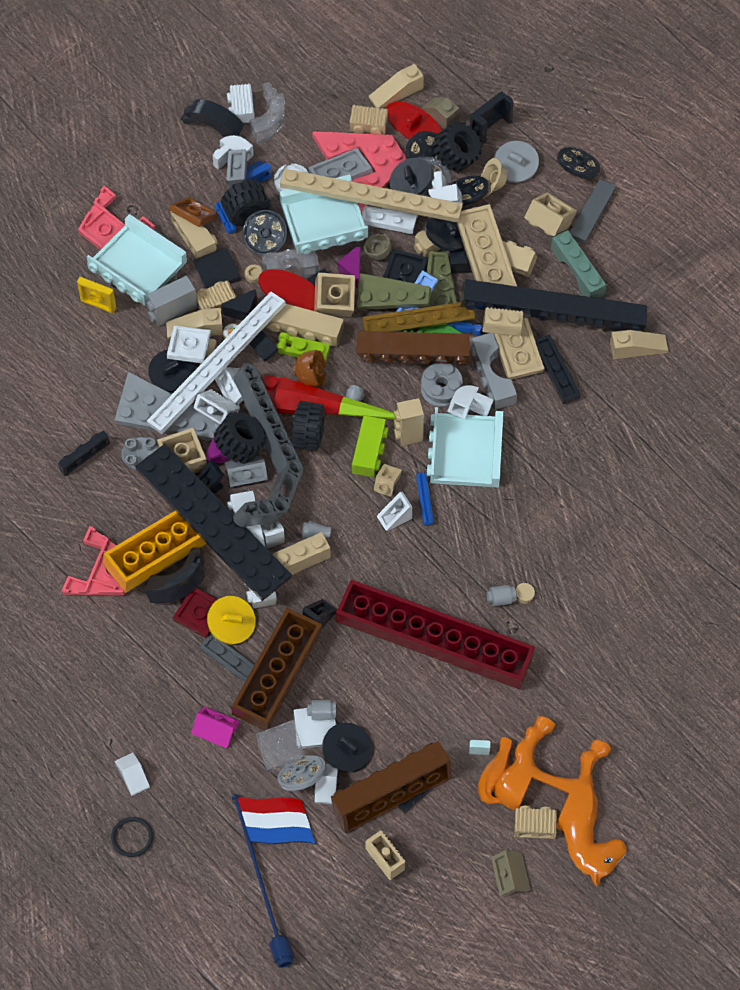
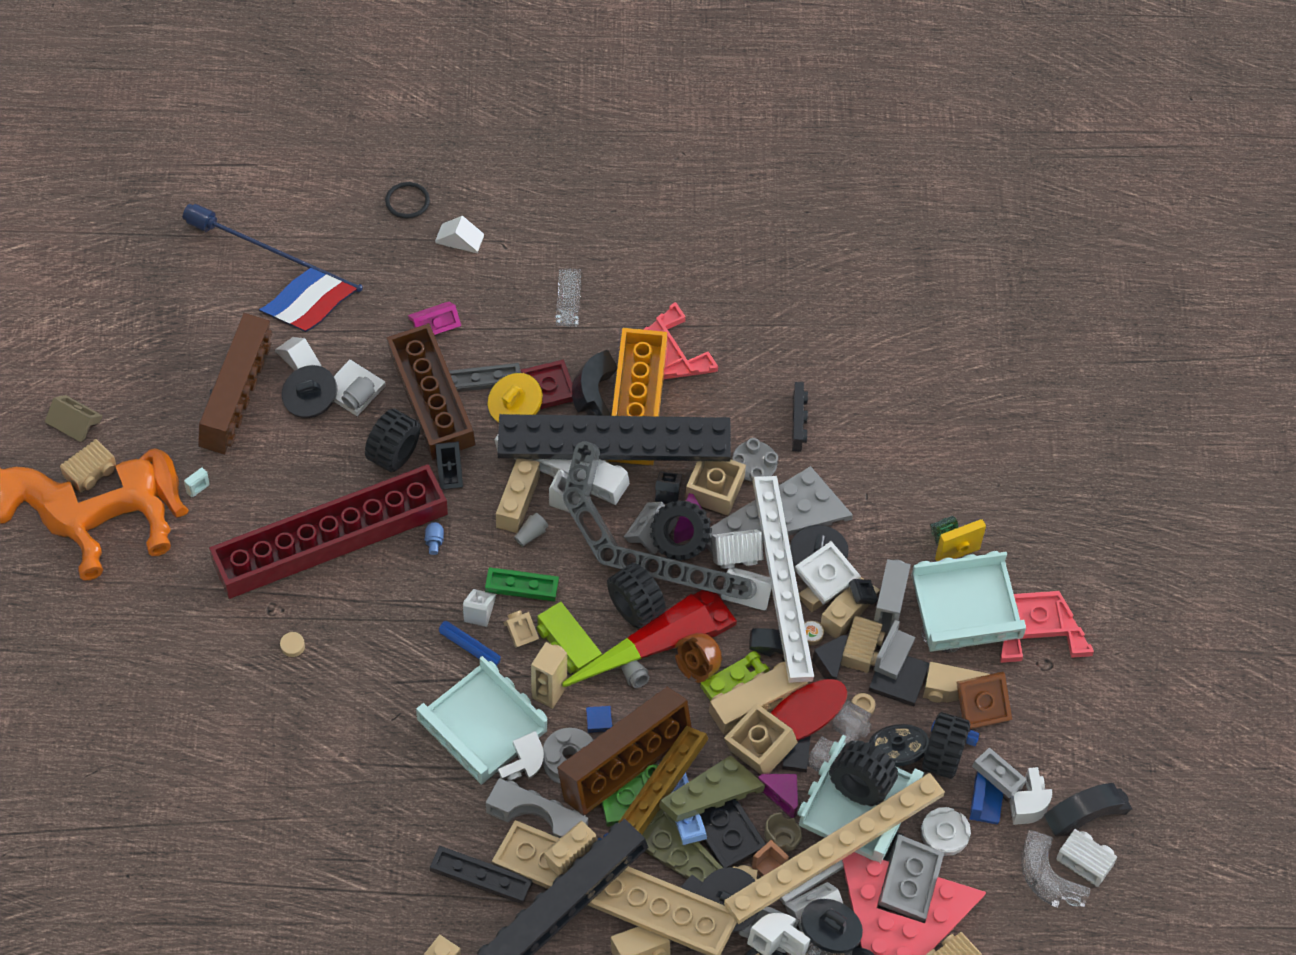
camera: 130 degrees right, 5 degrees down
(93, 315) = (943, 526): none -> clear green tile
(127, 652) = (568, 297): none -> clear arch
(183, 317) = (863, 591): none -> black tile
(207, 276) = (894, 652): none -> light grey panel
(280, 746) = (363, 347): clear plate -> none
(301, 773) = (321, 336): light grey shield -> none
(314, 210) = (863, 773): none -> black tyre
(338, 650) = (392, 440): none -> black tyre
(357, 504) = (522, 584): none -> green plate
(376, 579) = (434, 537): none -> medium blue cylinder
(385, 855) = (187, 338): tan brick -> none
(400, 241) = (769, 858): none -> nougat panel
(401, 392) = (598, 719): none -> blue tile
(501, 595) = (308, 619): light grey brick -> none

